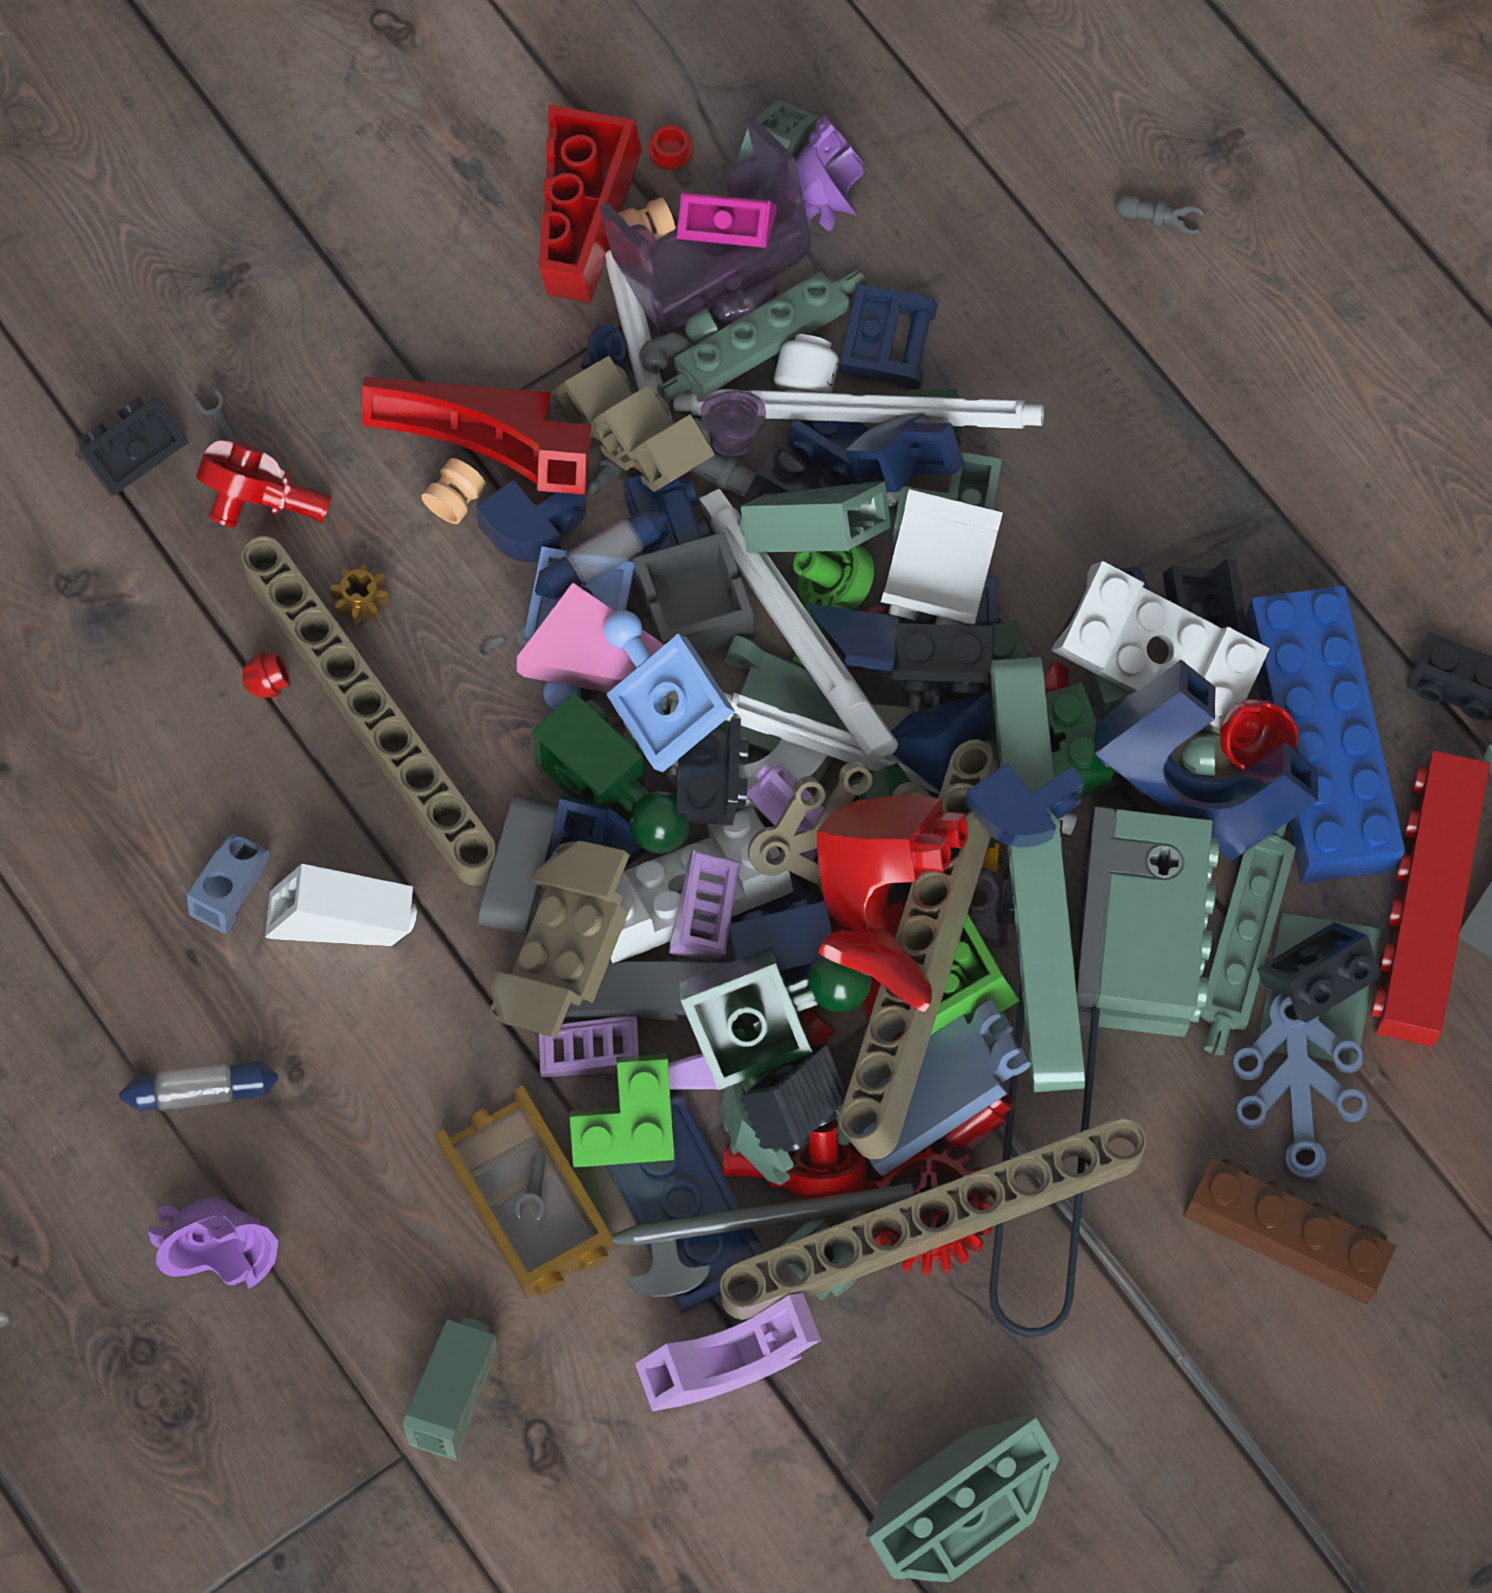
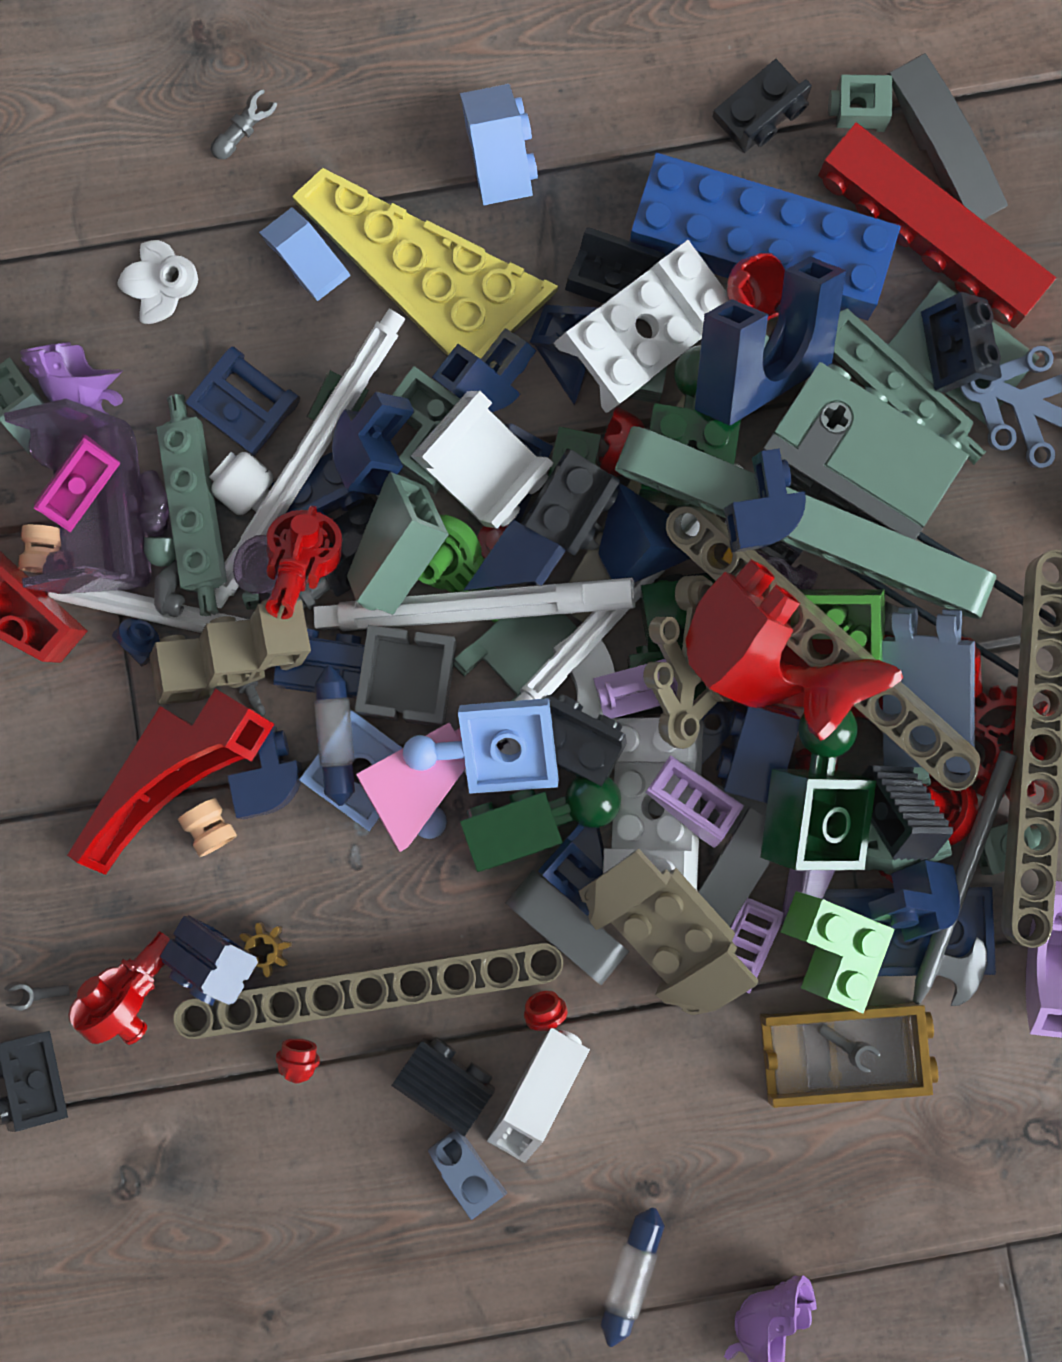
camera: 60 degrees left, 15 degrees up
(307, 818) = (445, 1085): none -> black brick
(324, 541) = (207, 962): none -> dark blue brick
(427, 880) = (545, 1011): none -> red plate
(450, 1388) = (987, 1191): sand green slope -> none
(713, 1178) = (923, 900): none -> dark blue brick
(757, 436) = (297, 556): none -> red pin
(965, 210) = (152, 279): none -> white plate
(1026, 540) = (491, 374): none -> dark blue brick
(1063, 323) = (305, 253): none -> light blue slope
(1107, 457) = (428, 272): none -> light yellow wing
(1268, 437) = (497, 136): none -> light blue brick

